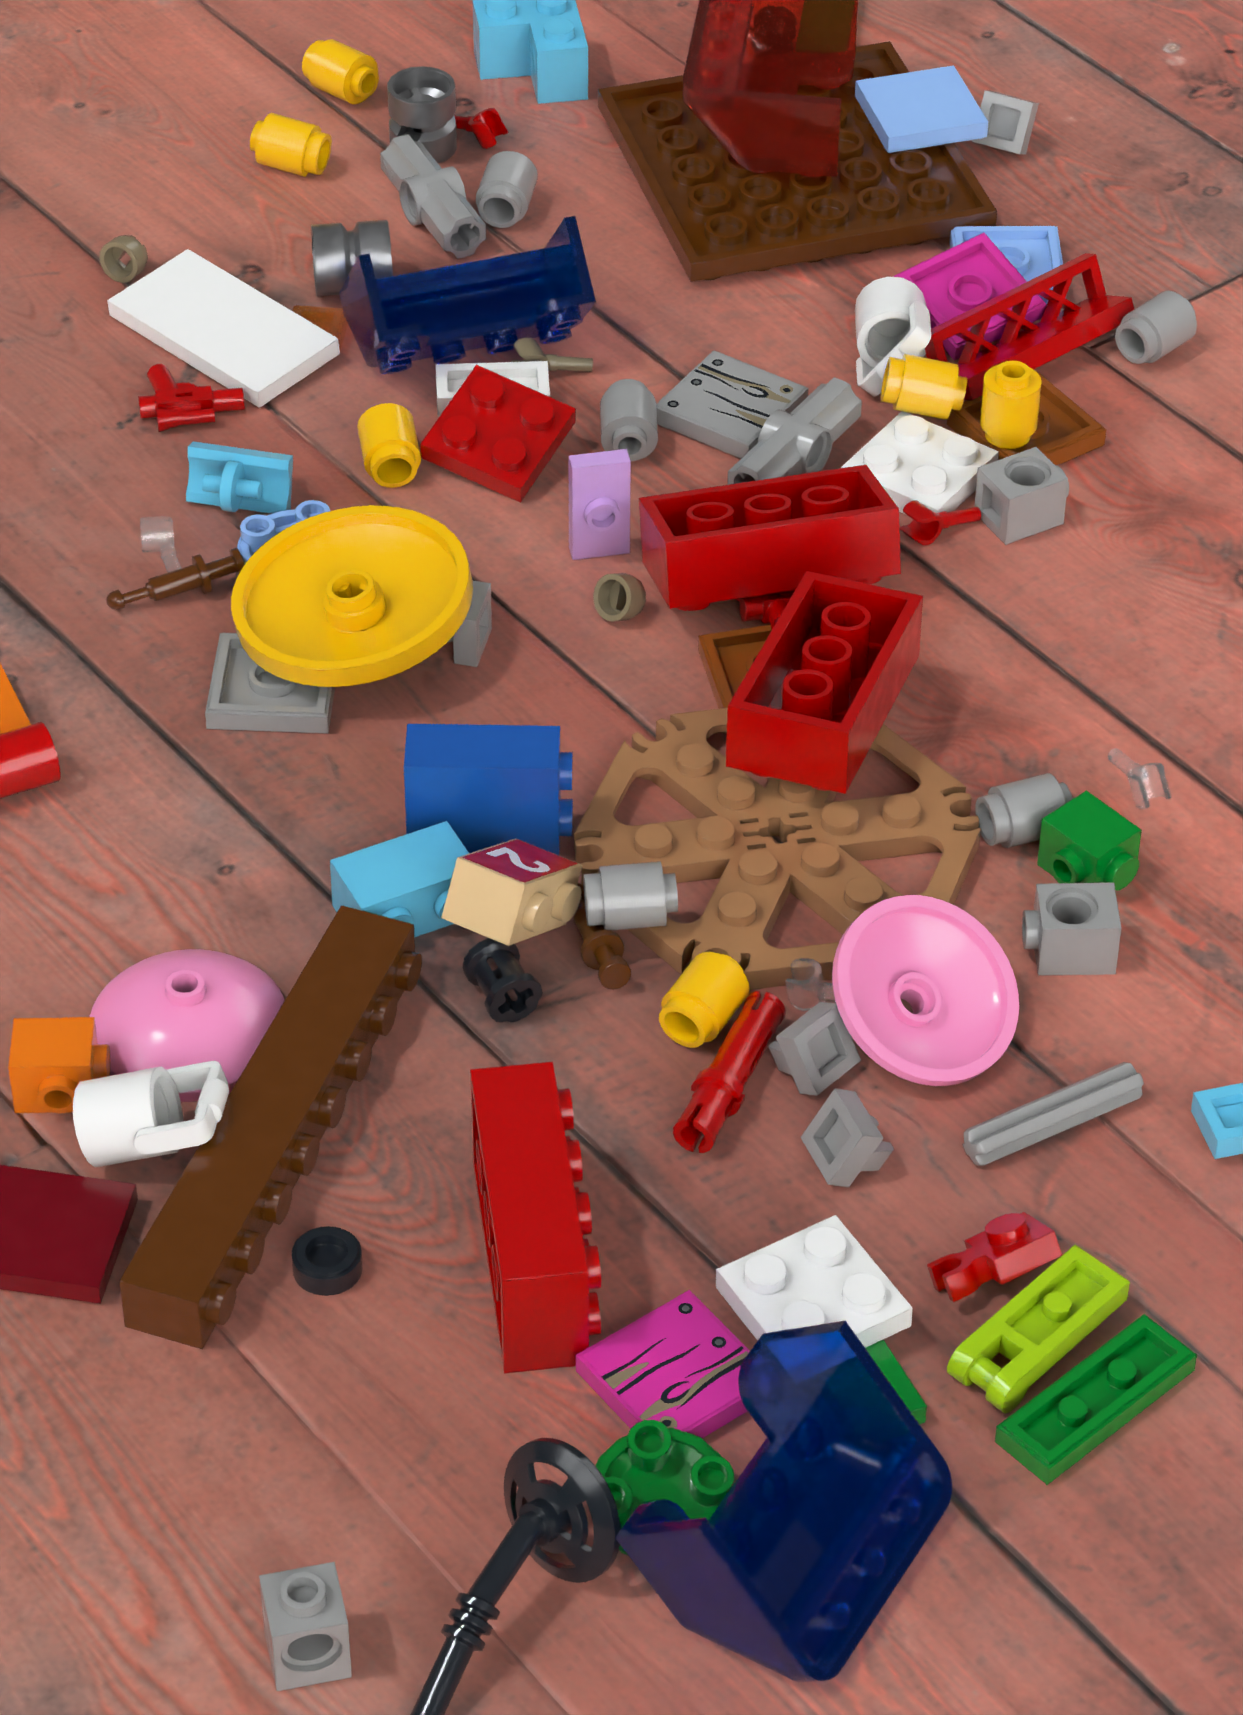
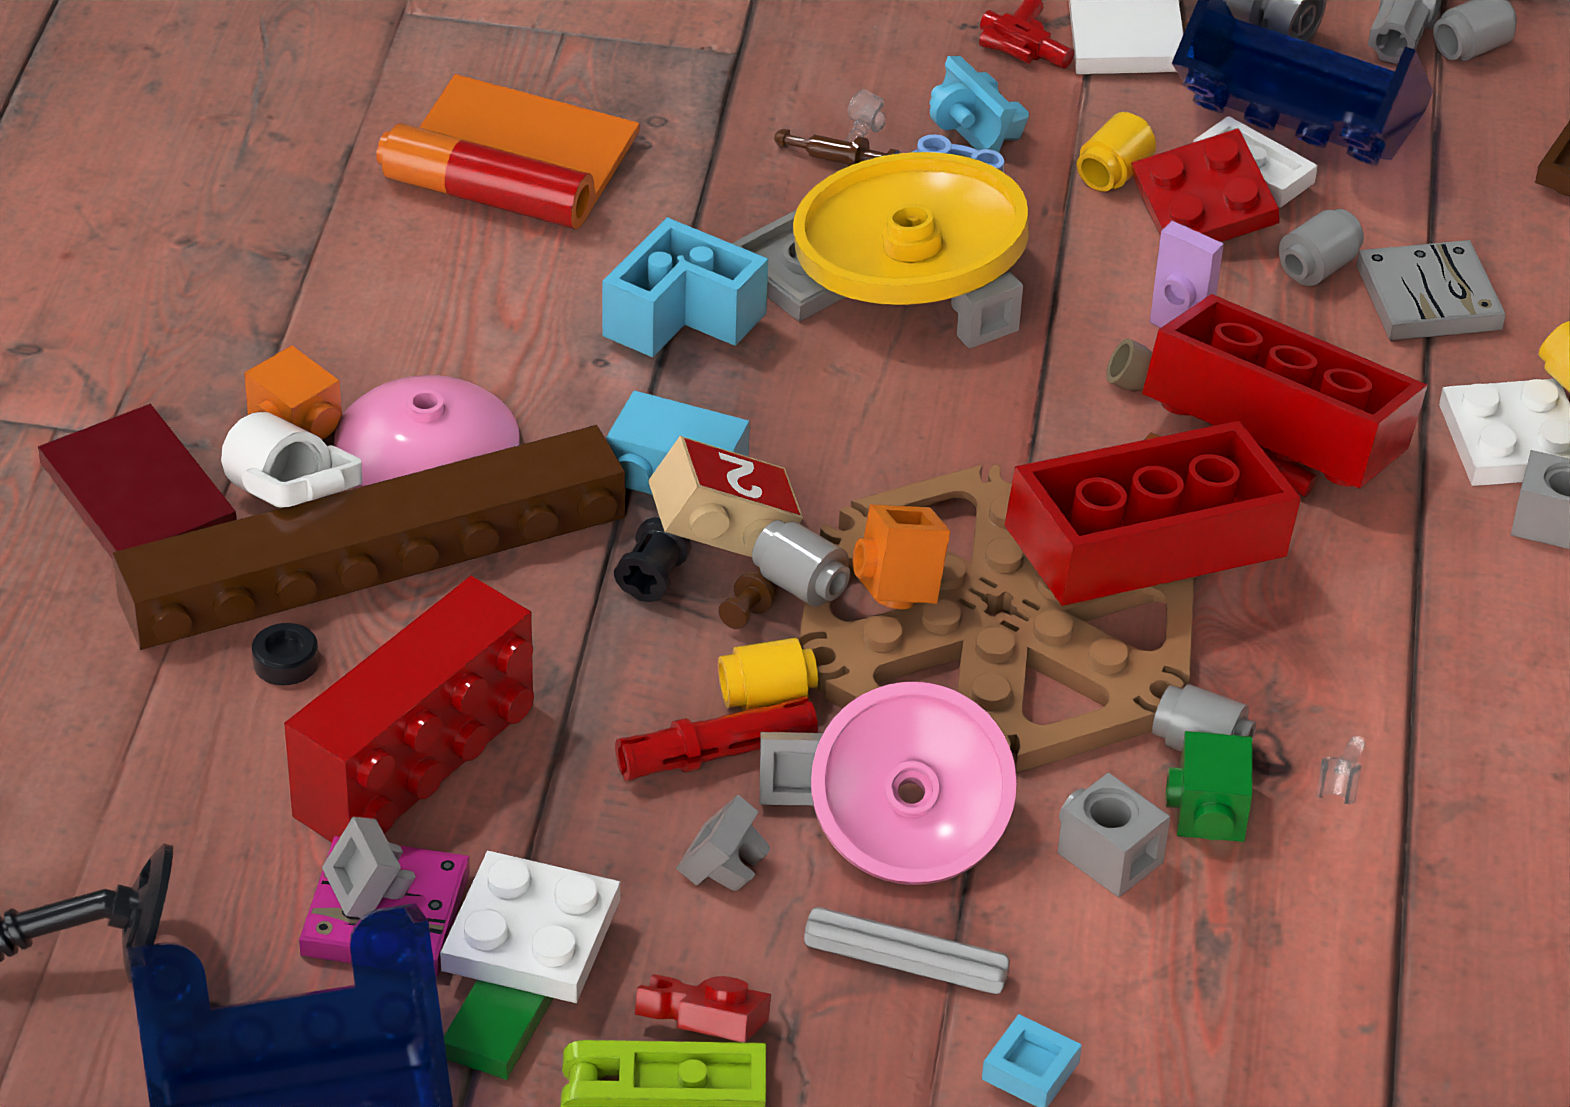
camera: 45 degrees right, 0 degrees up
(240, 752) = (683, 280): none -> medium azure brick
(489, 783) = (805, 418): blue brick -> none
(531, 351) = (1324, 154): dark tan hand -> none
(657, 1351) = (365, 868): none -> light grey tile
(665, 1465) = (258, 955): green dish -> none
(706, 834) = (901, 555): none -> orange brick
(800, 439) = (1436, 345): light grey piece -> none
(929, 524) = (1455, 475): red hand -> none

